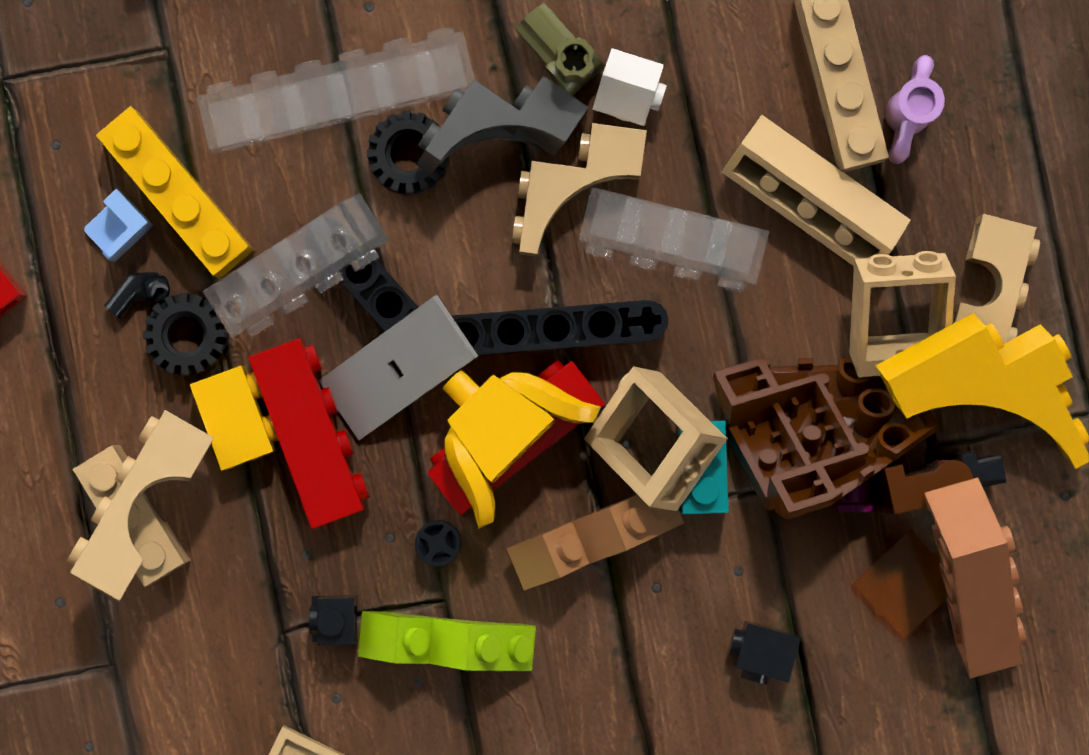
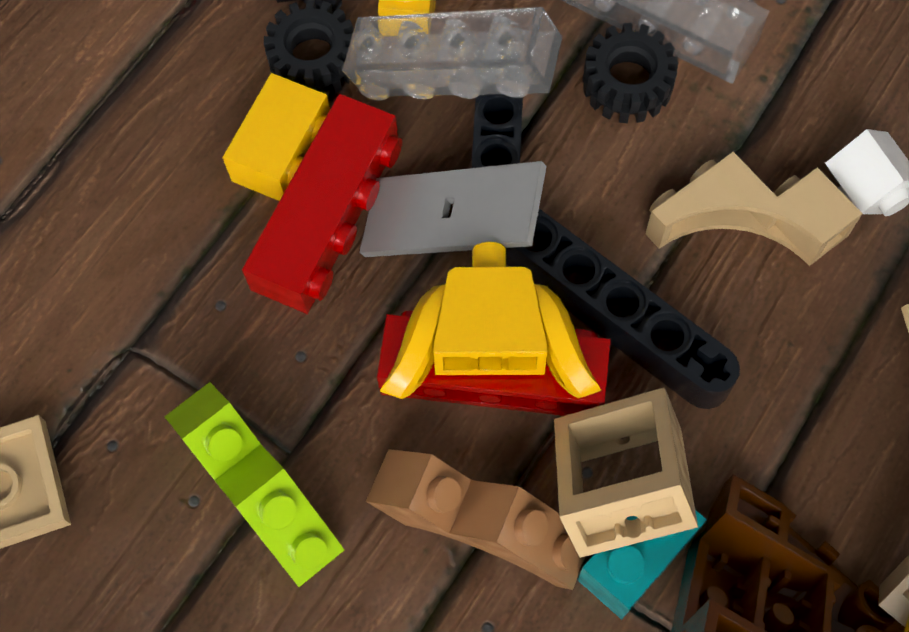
camera: 45 degrees right, 20 degrees down
(147, 531) = (103, 165): tan arch -> none
(169, 453) = (58, 110): tan arch -> none
(334, 619) = (175, 362): black brick -> none
(435, 548) = (331, 380): black wheel -> none
(537, 117) = (719, 77): dark grey arch -> none
(567, 58) = (841, 98): olive piece -> none
(673, 238) = (801, 330): clear brick -> none

